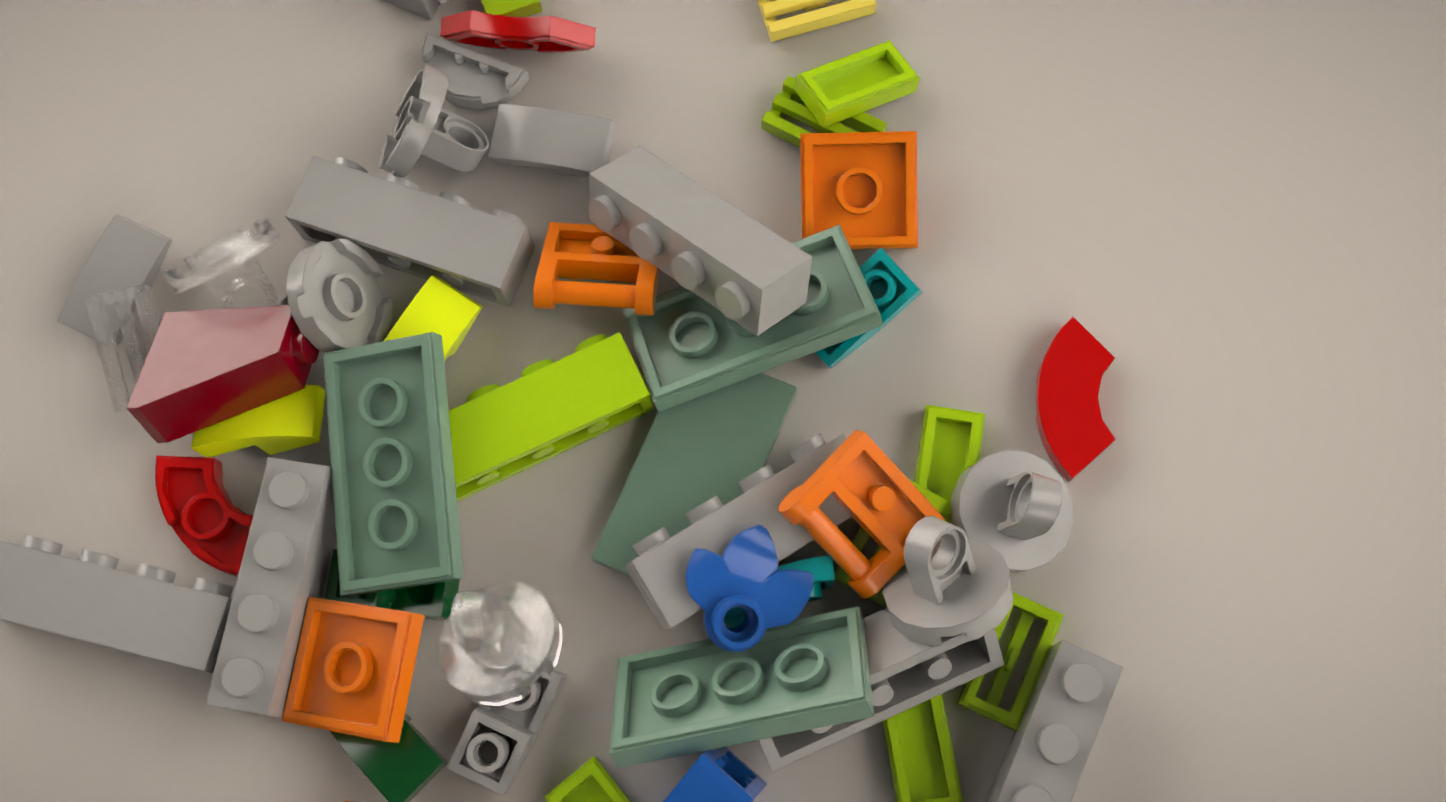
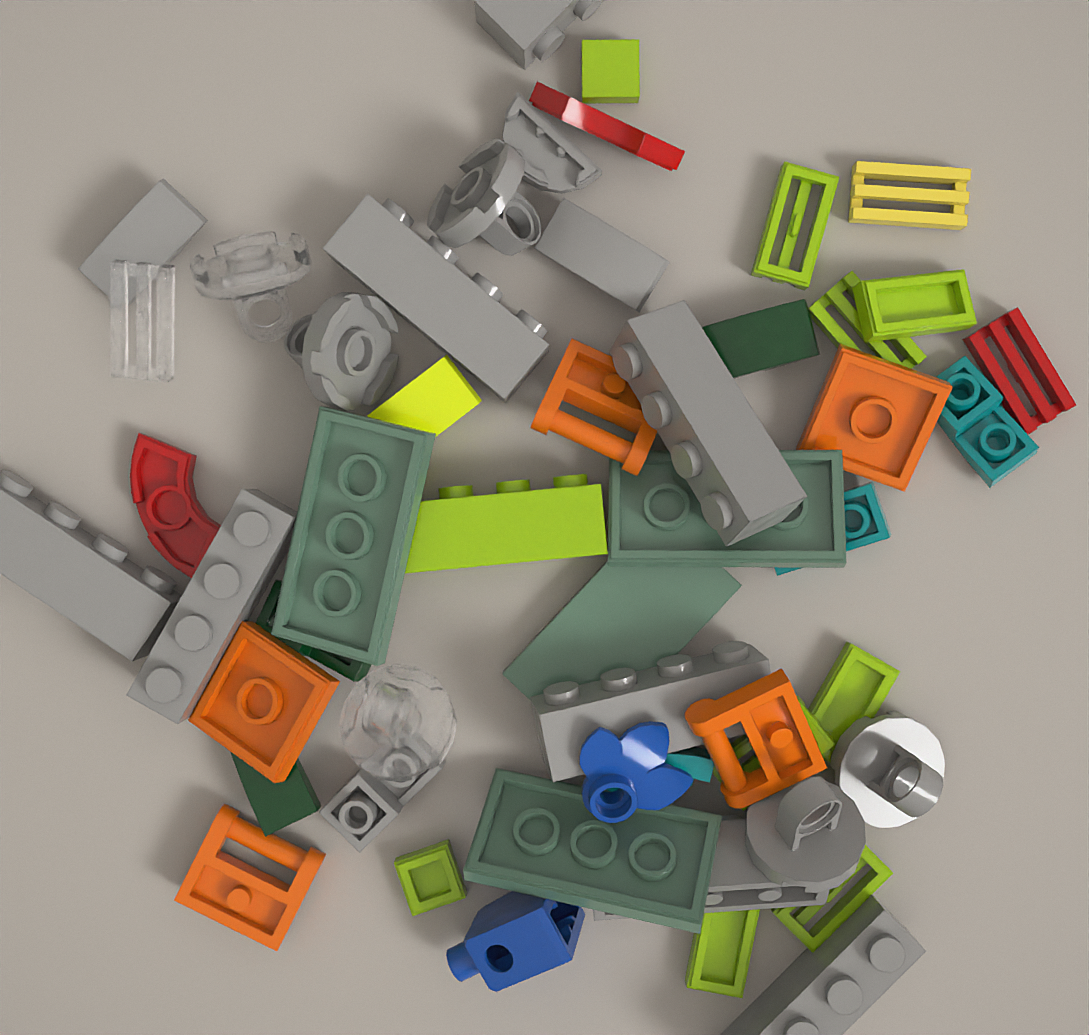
camera: 20 degrees right, 15 degrees up
(218, 367) = (218, 378): slope -> none
(272, 427) = (242, 434): neon yellow slope -> none
(726, 100) = (781, 273): none -> lime tile
(733, 157) = (764, 338): none -> dark green slope
(964, 168) = (981, 426): none -> teal slope
(984, 101) = (1037, 360): none -> red tile
(1068, 399) = (980, 683): red tile -> none

